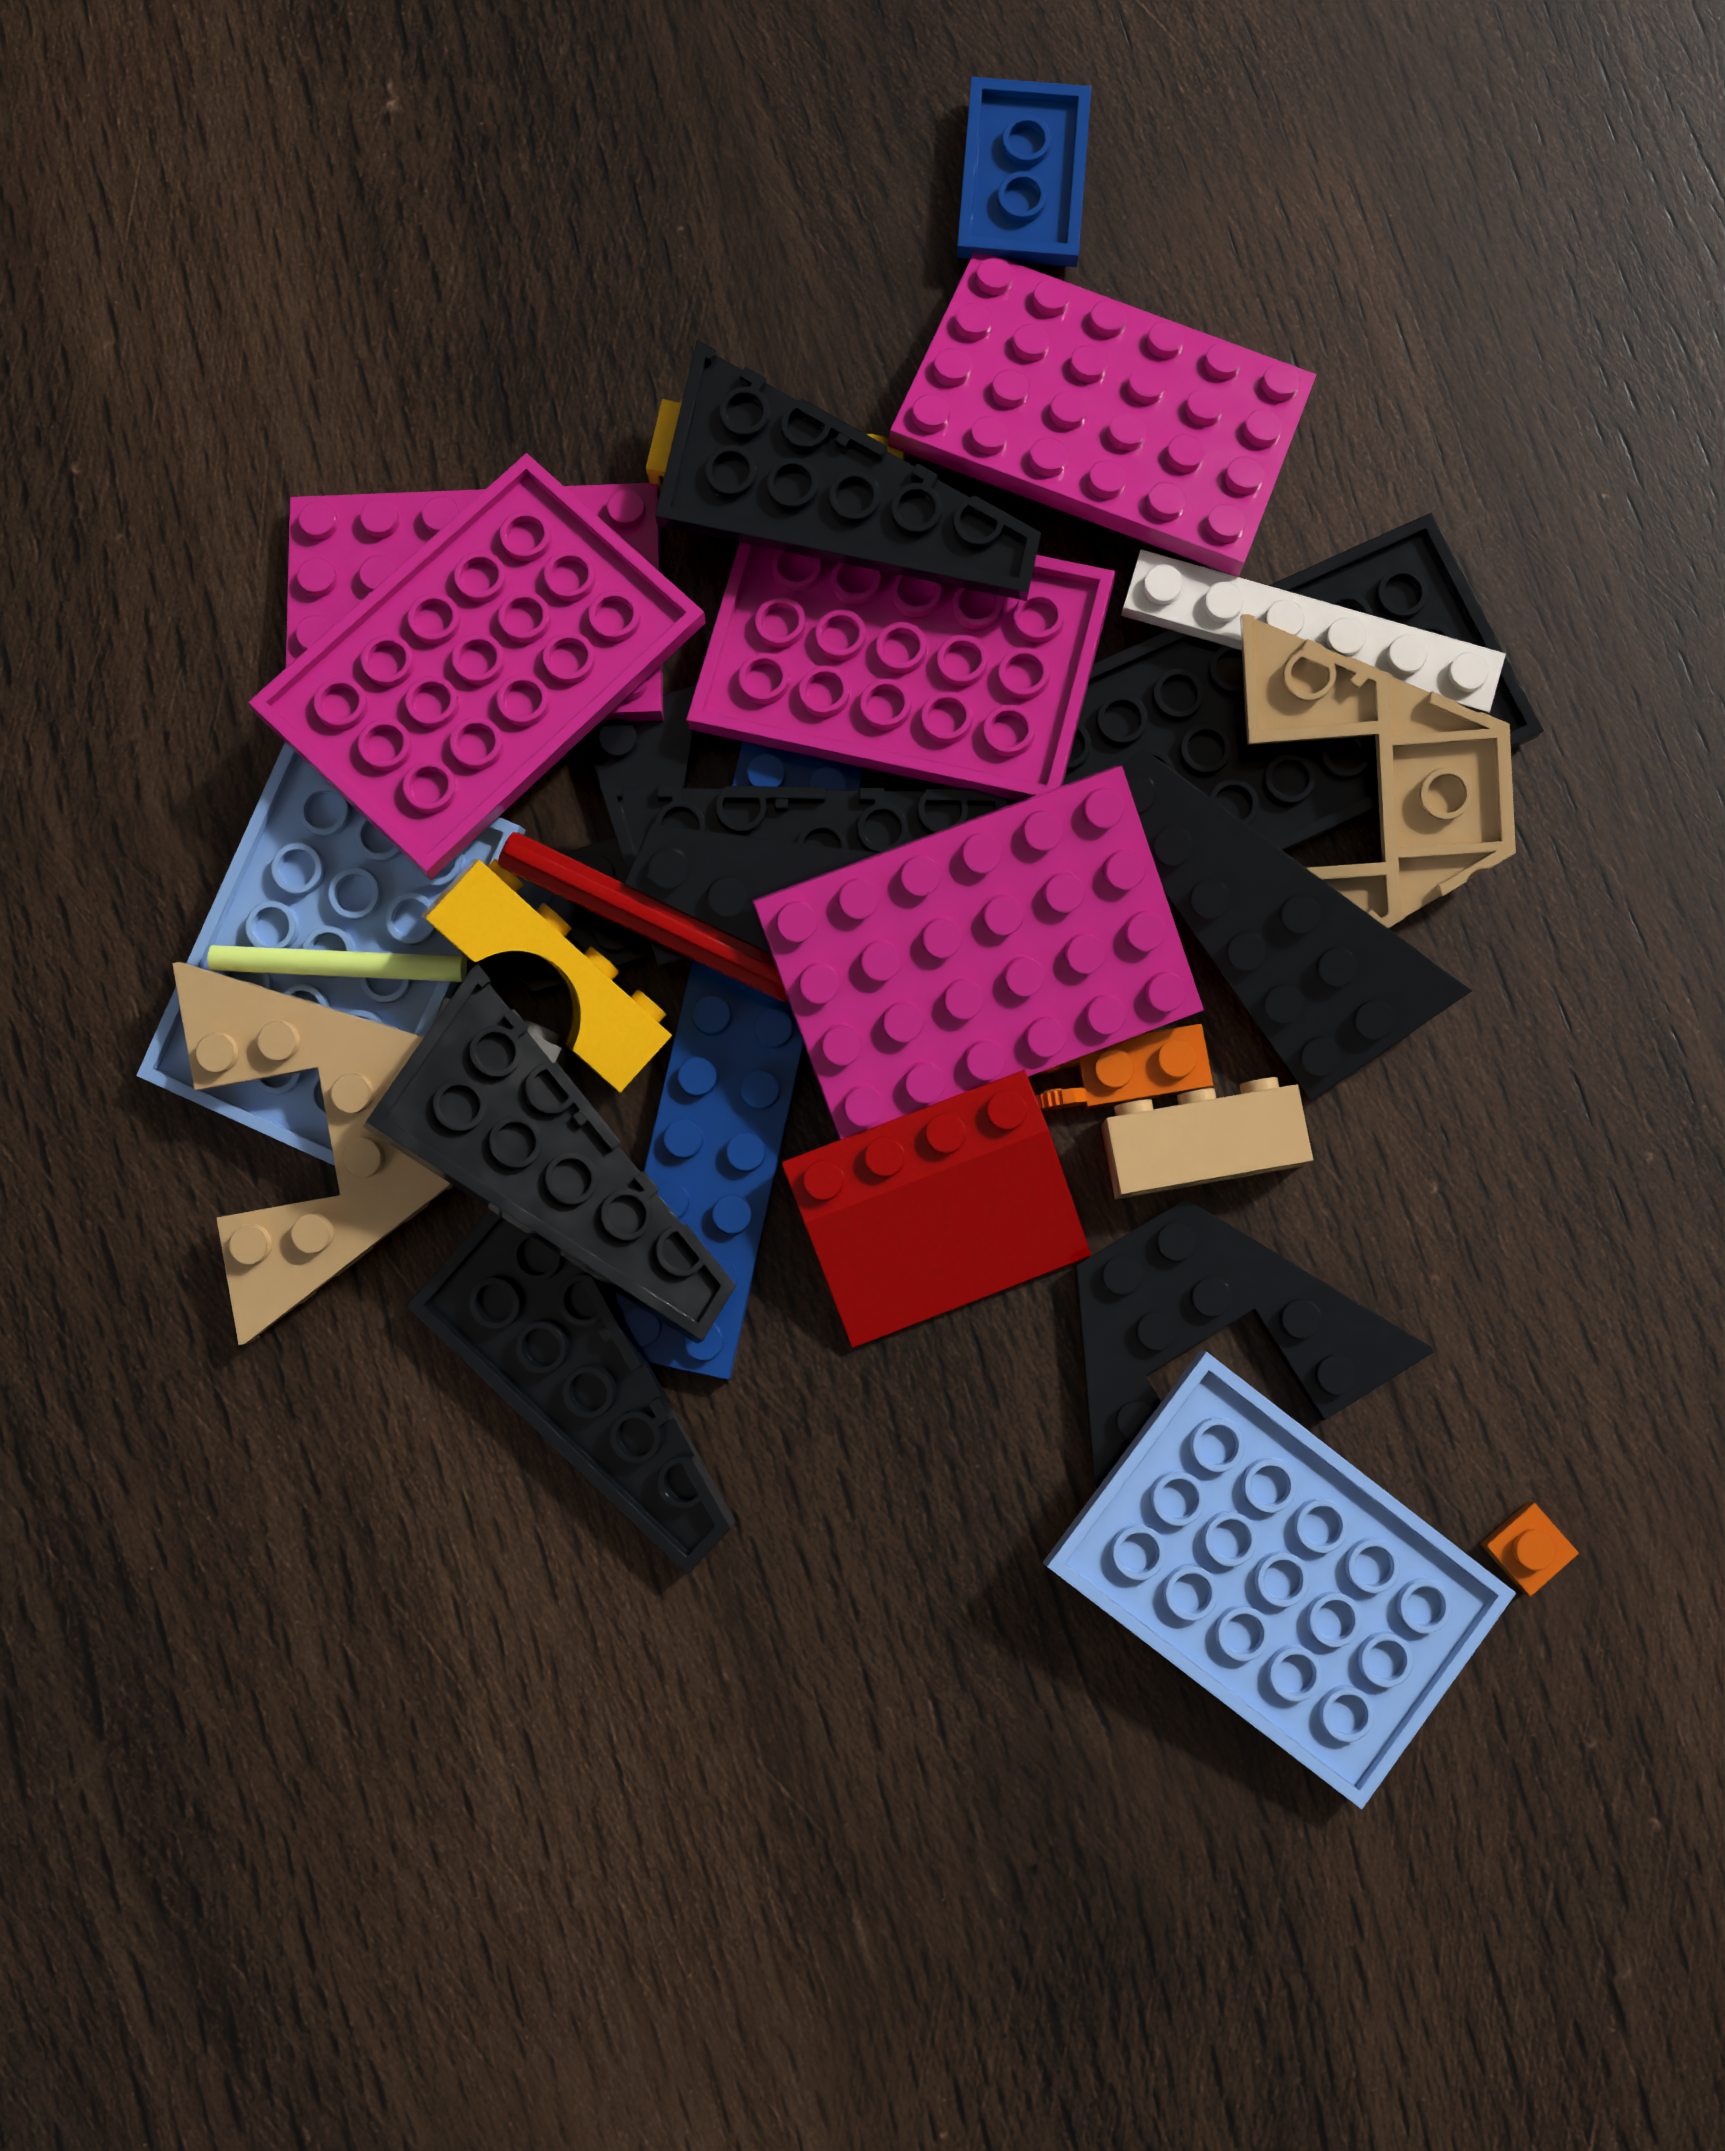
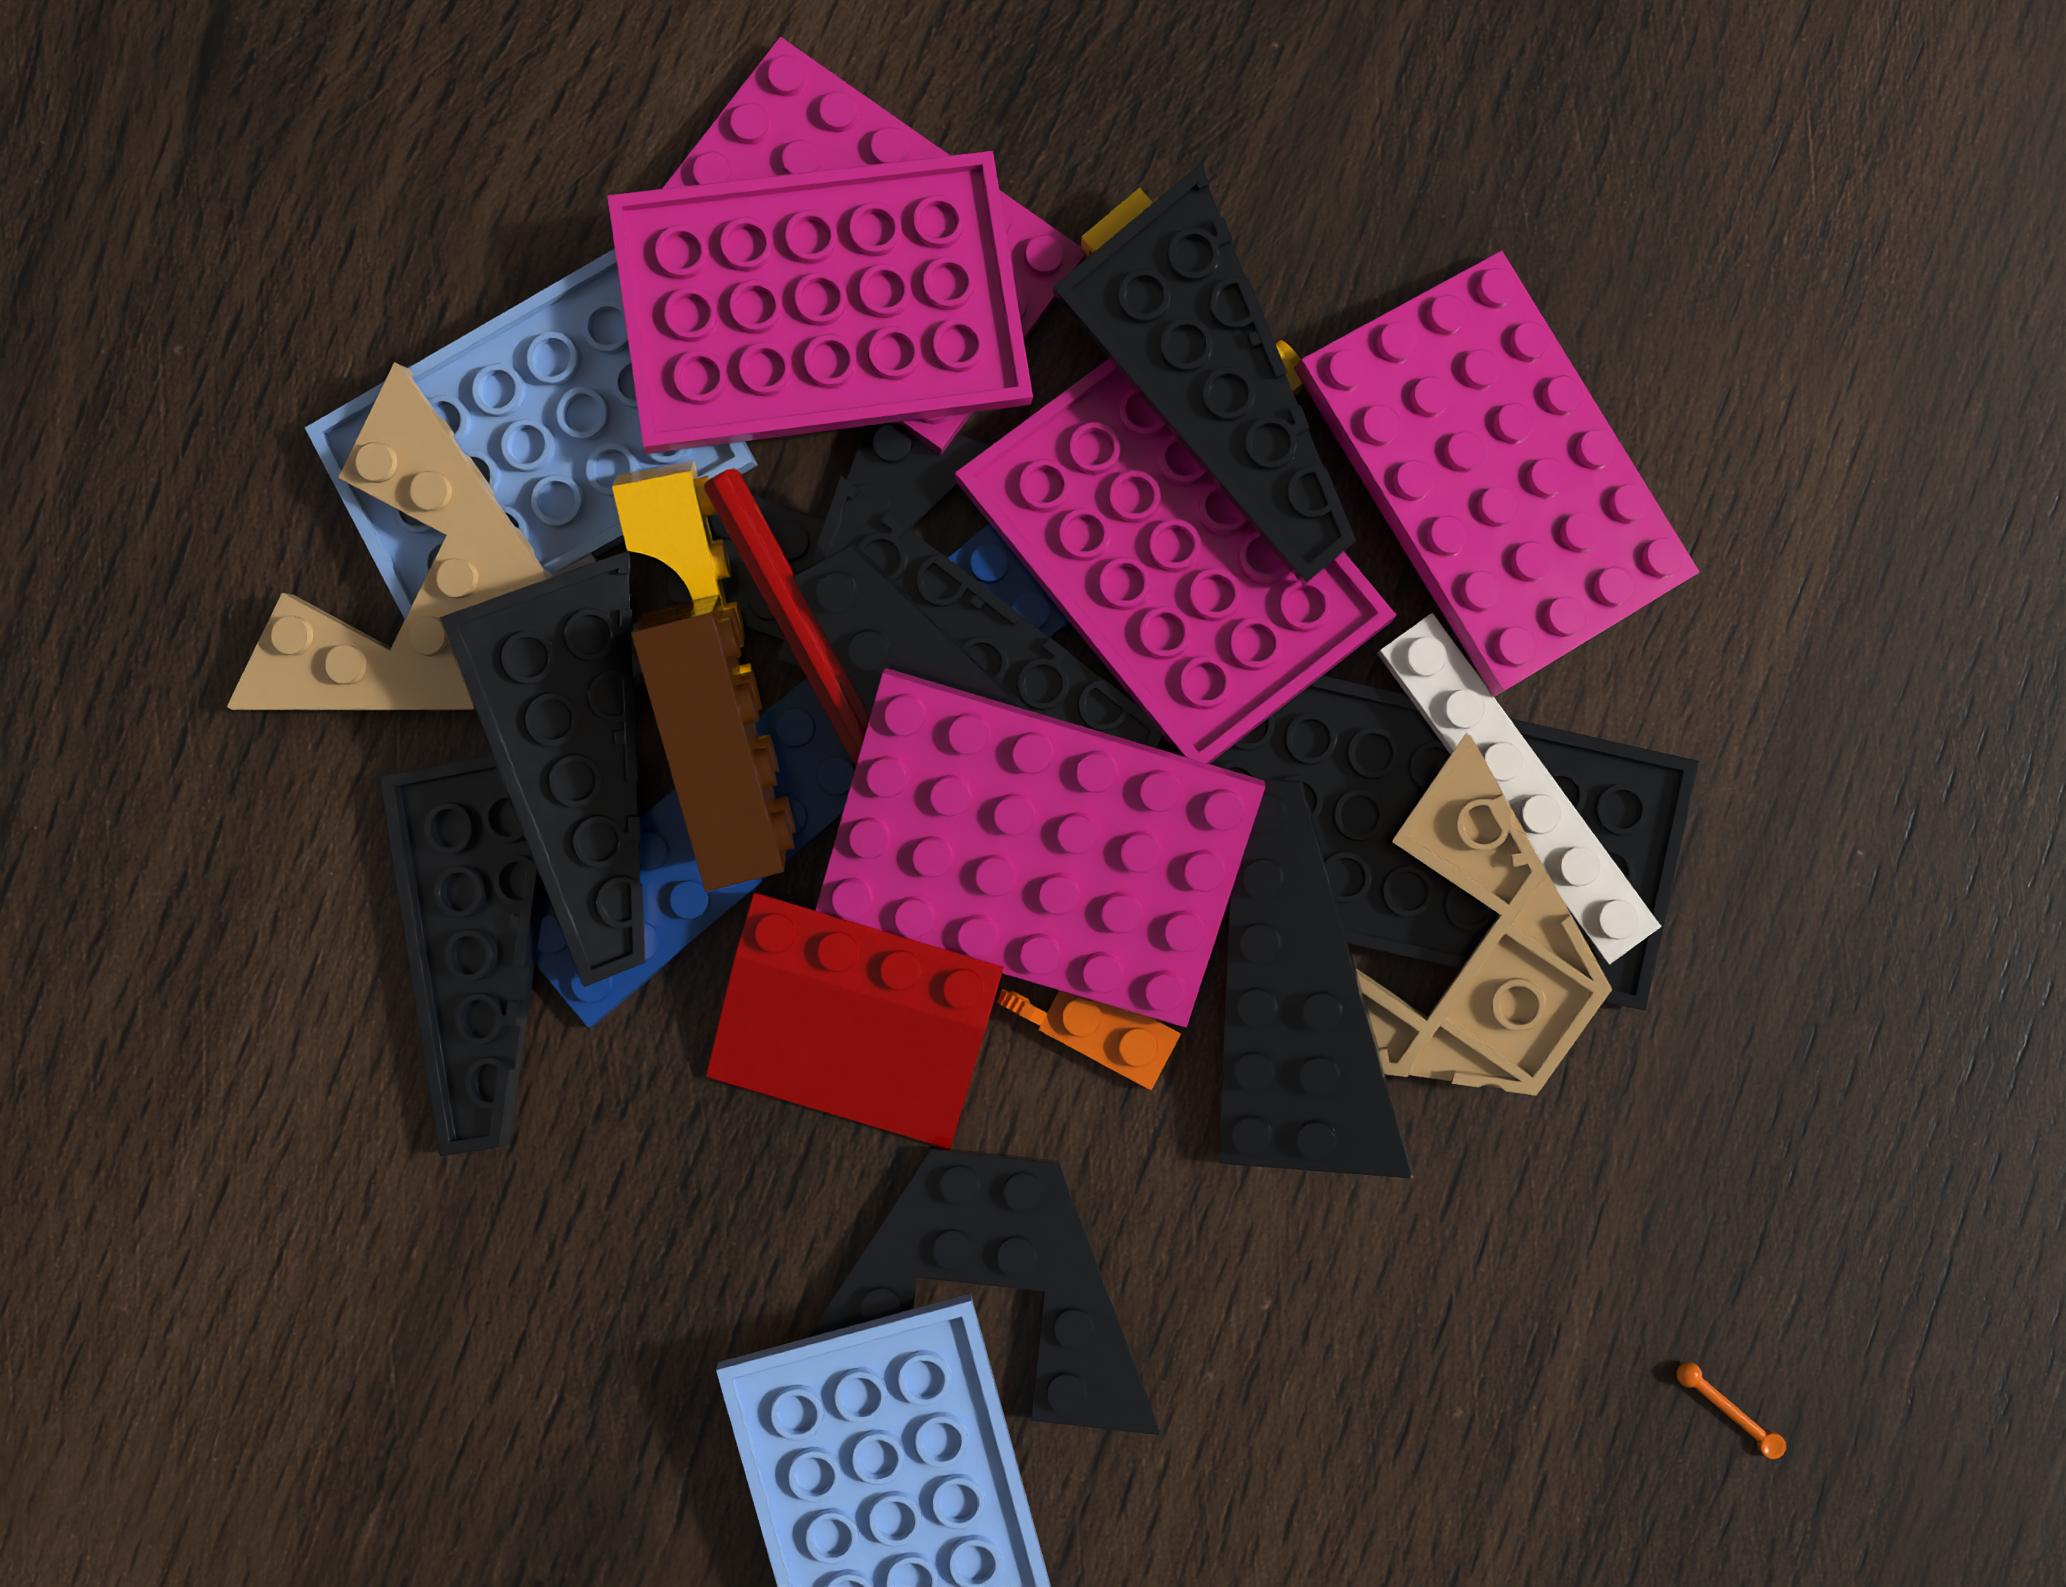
camera: 30 degrees right, 5 degrees up
(337, 963) = (524, 461): yellowish green bar -> none
(661, 1058) = (712, 741): none -> reddish brown brick
(1024, 171) = (1594, 214): blue plate -> none
(1205, 1138) = (1110, 1129): tan brick -> none

